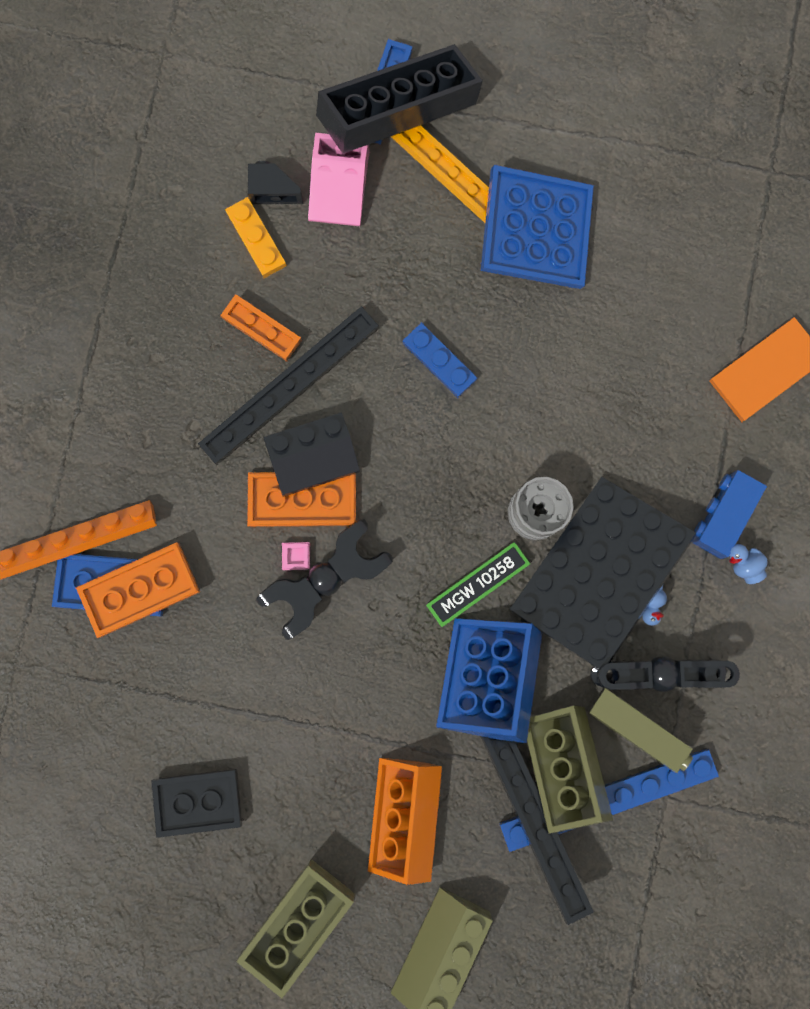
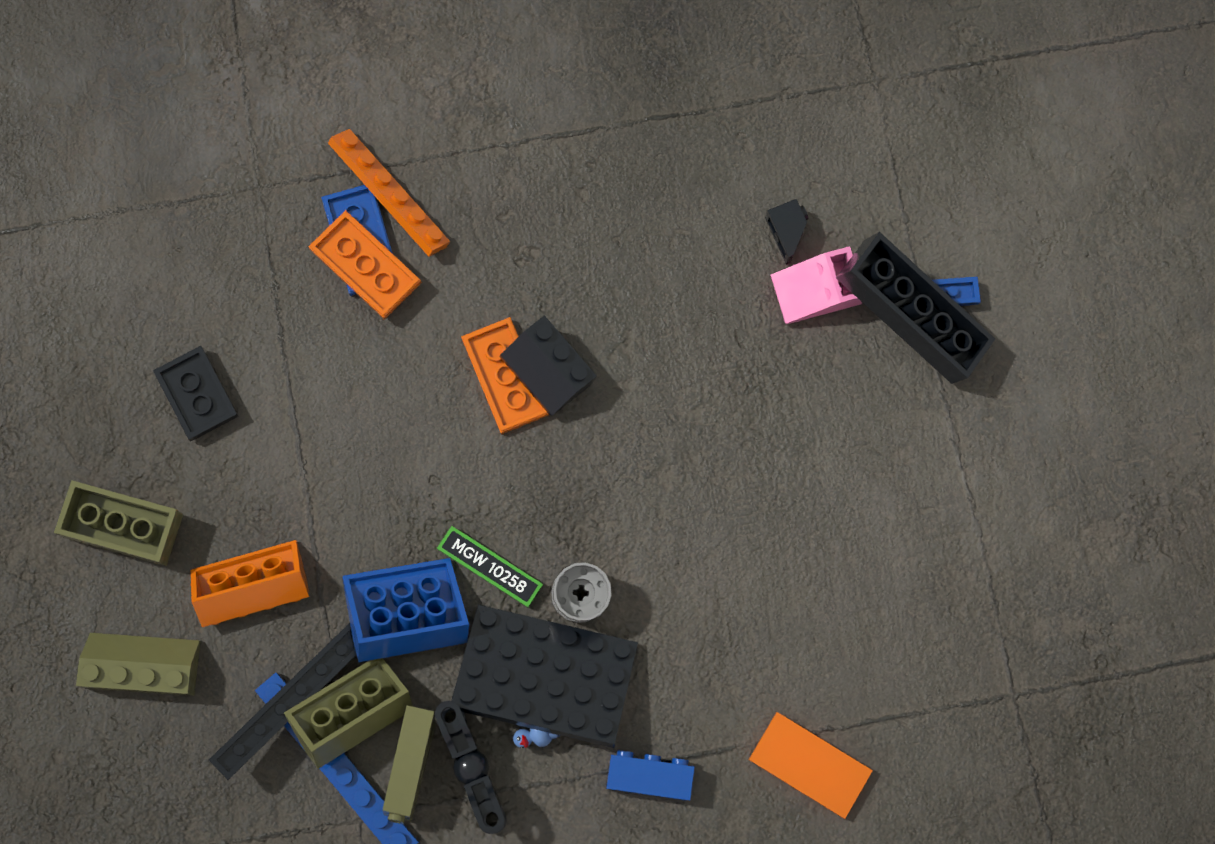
camera: 65 degrees right, 5 degrees down
(255, 237) = (733, 235): light orange plate -> none
(261, 327) = (649, 274): orange plate -> none
(288, 385) = (606, 321): black plate -> none
(296, 556) = (450, 391): bright pink tile -> none
(324, 579) = (439, 424): black piece -> none
(439, 360) = (687, 448): blue plate -> none
(445, 168) = (869, 397): light orange plate -> none
(537, 227) = (852, 487): blue plate -> none
(748, 564) = (607, 815): medium blue animal -> none

